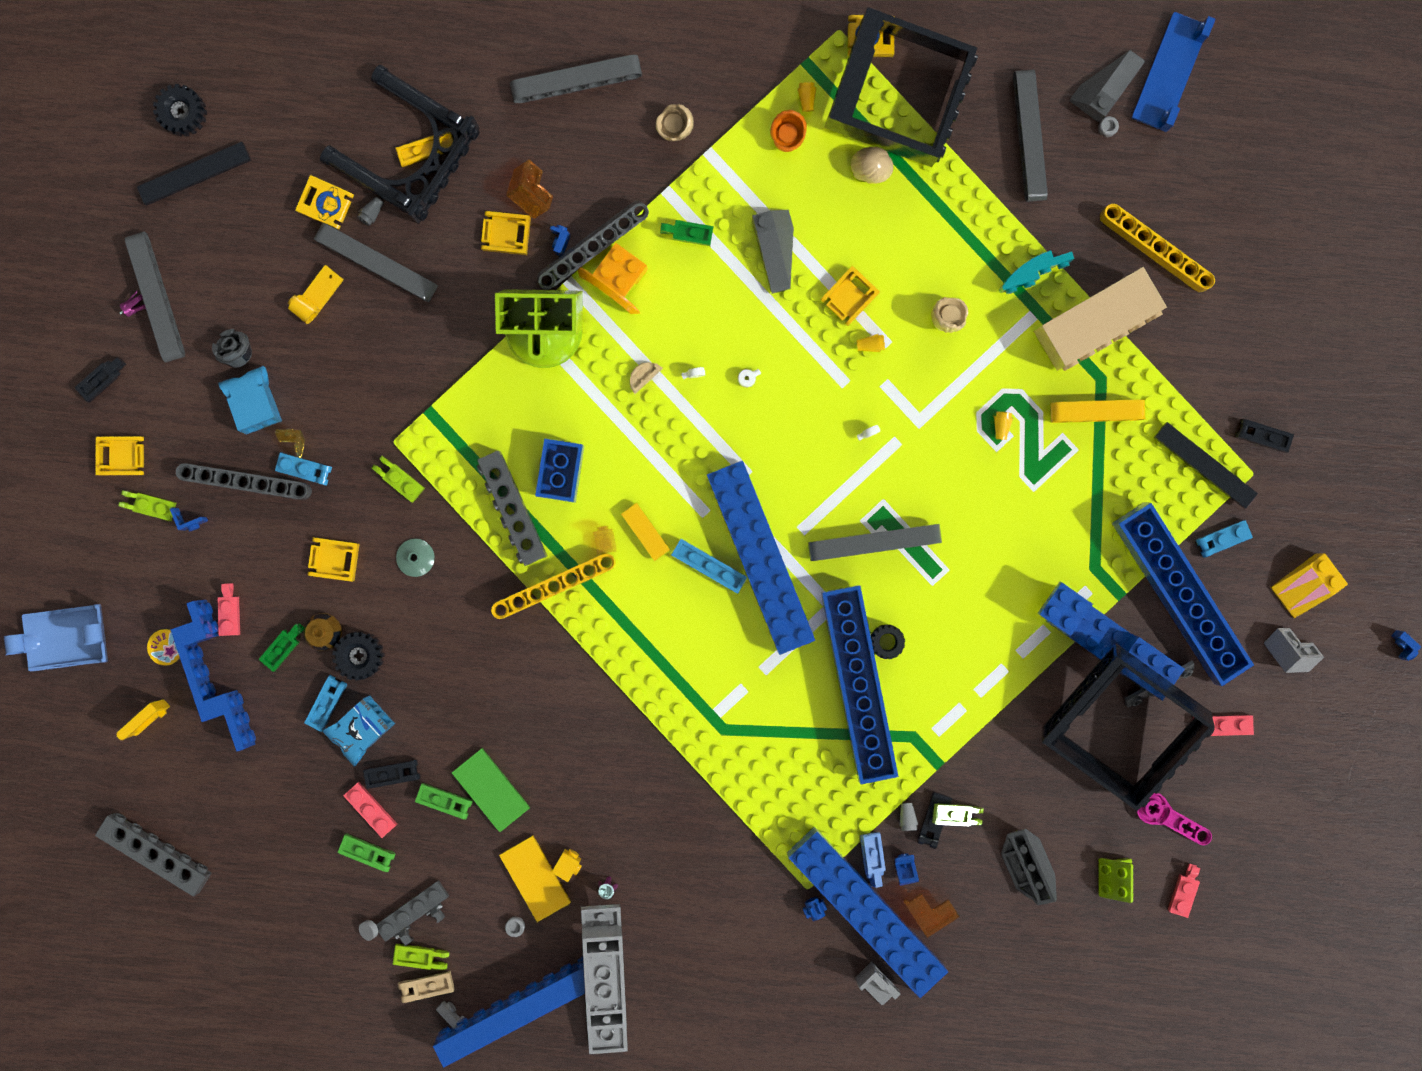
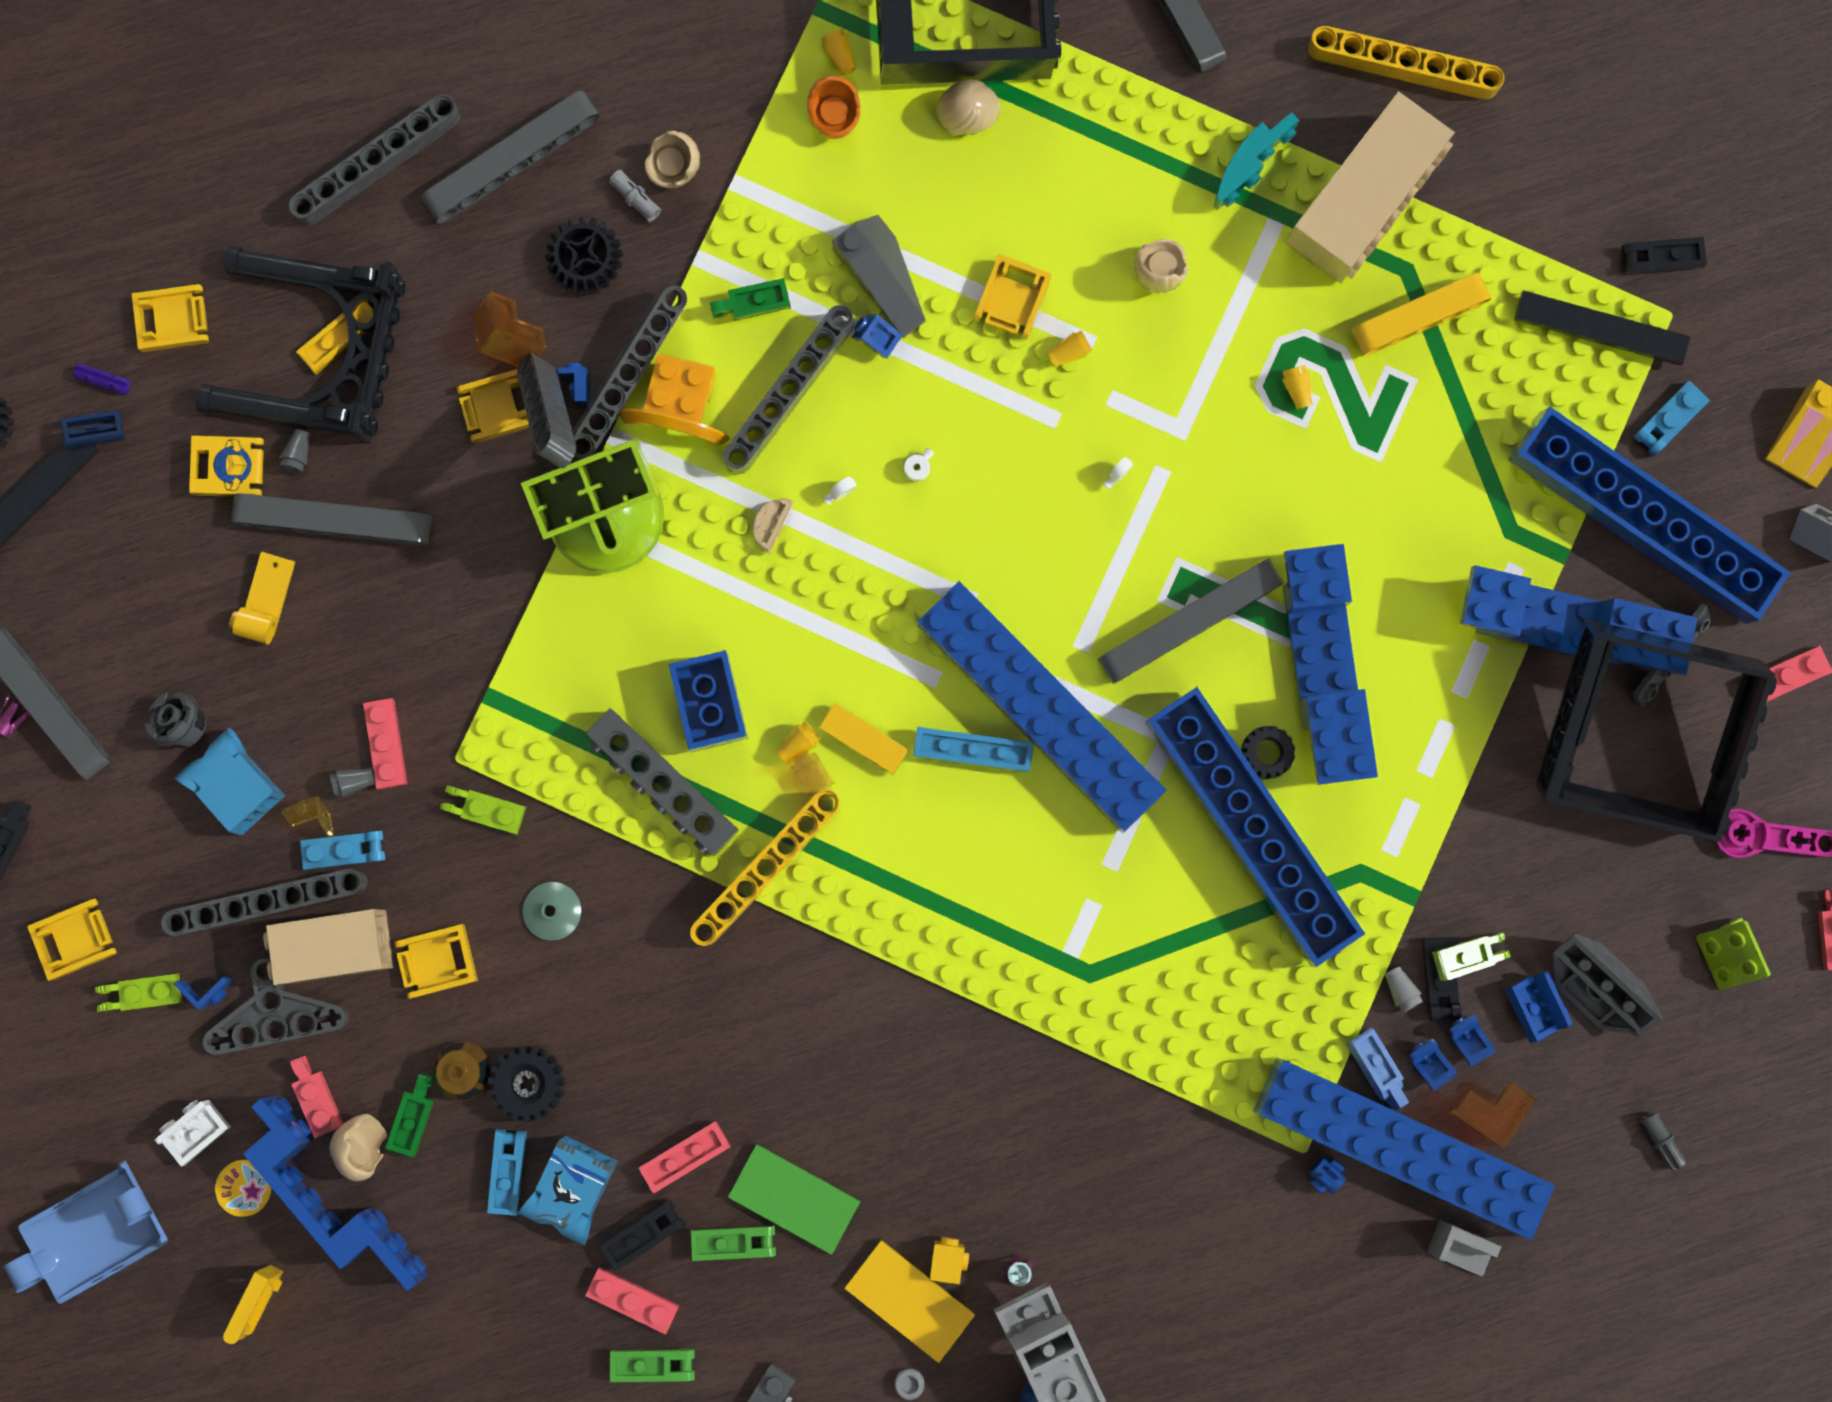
camera: 20 degrees left, 5 degrees down
(147, 602) = (193, 1131): none -> white bracket
(213, 549) = (259, 1017): none -> dark grey beam
(241, 652) = (357, 1147): none -> tan piece
(245, 151) = (91, 429): none -> dark blue tile
(271, 117) = (101, 378): none -> dark purple axle
(271, 525) = (328, 947): none -> tan brick
(324, 429) = (351, 781): none -> dark grey cone
(330, 95) = (176, 318): none -> yellow container
(354, 414) = (385, 743): none -> coral plate
(435, 738) = (684, 1157): none -> coral plate
(500, 49) = (360, 160): none -> dark grey beam
(531, 252) = (546, 411): none -> dark grey beam
(602, 156) = (594, 236): none -> black gear
(605, 517) = (799, 741): none -> yellow cone
(643, 135) = (634, 195): none -> light grey pin
(693, 289) = (791, 375): none -> dark grey beam
(756, 285) = (876, 334): none -> blue bracket
(935, 865) = (1471, 1040): none -> blue bracket
(944, 604) = (1325, 664): none -> blue bracket
(985, 861) = (1538, 1006): none -> blue bracket
(1025, 971) = (1663, 1141): none -> dark grey axle

